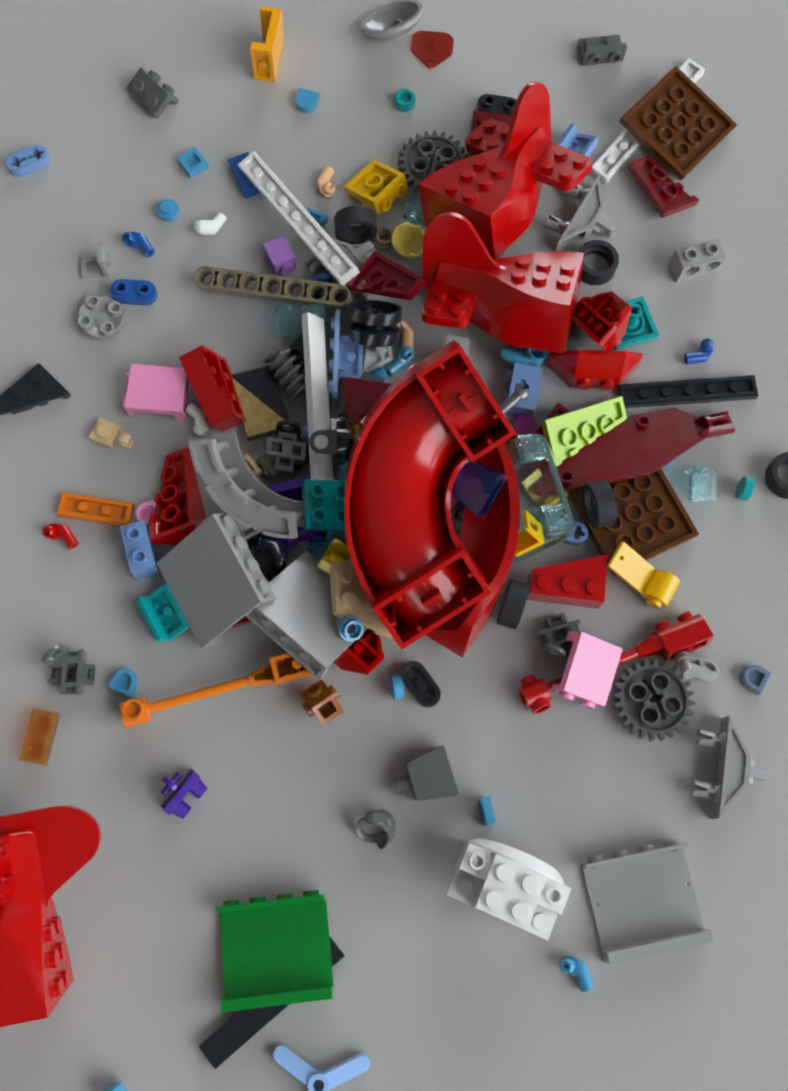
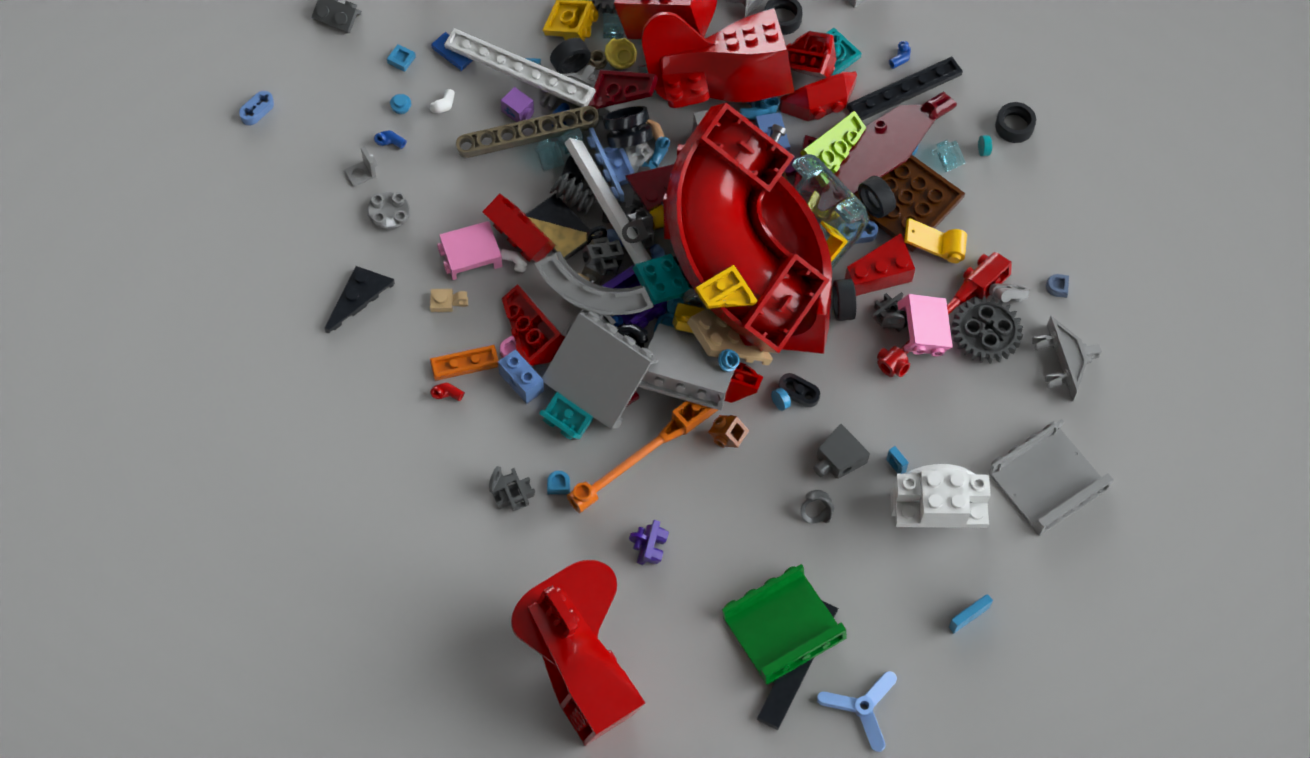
camera: 20 degrees left, 10 degrees down
(39, 737) = (512, 548): clear orange plate -> none
(132, 293) = (406, 180): blue plate -> none
(323, 182) = (522, 33): light nougat arm -> none
(368, 560) = (726, 290): none -> yellow wing
(478, 487) = (779, 215): clear blue torso -> none
(484, 1027) = (970, 613): none -> dark azure tile
(579, 969) = (1023, 547): dark azure arm -> none

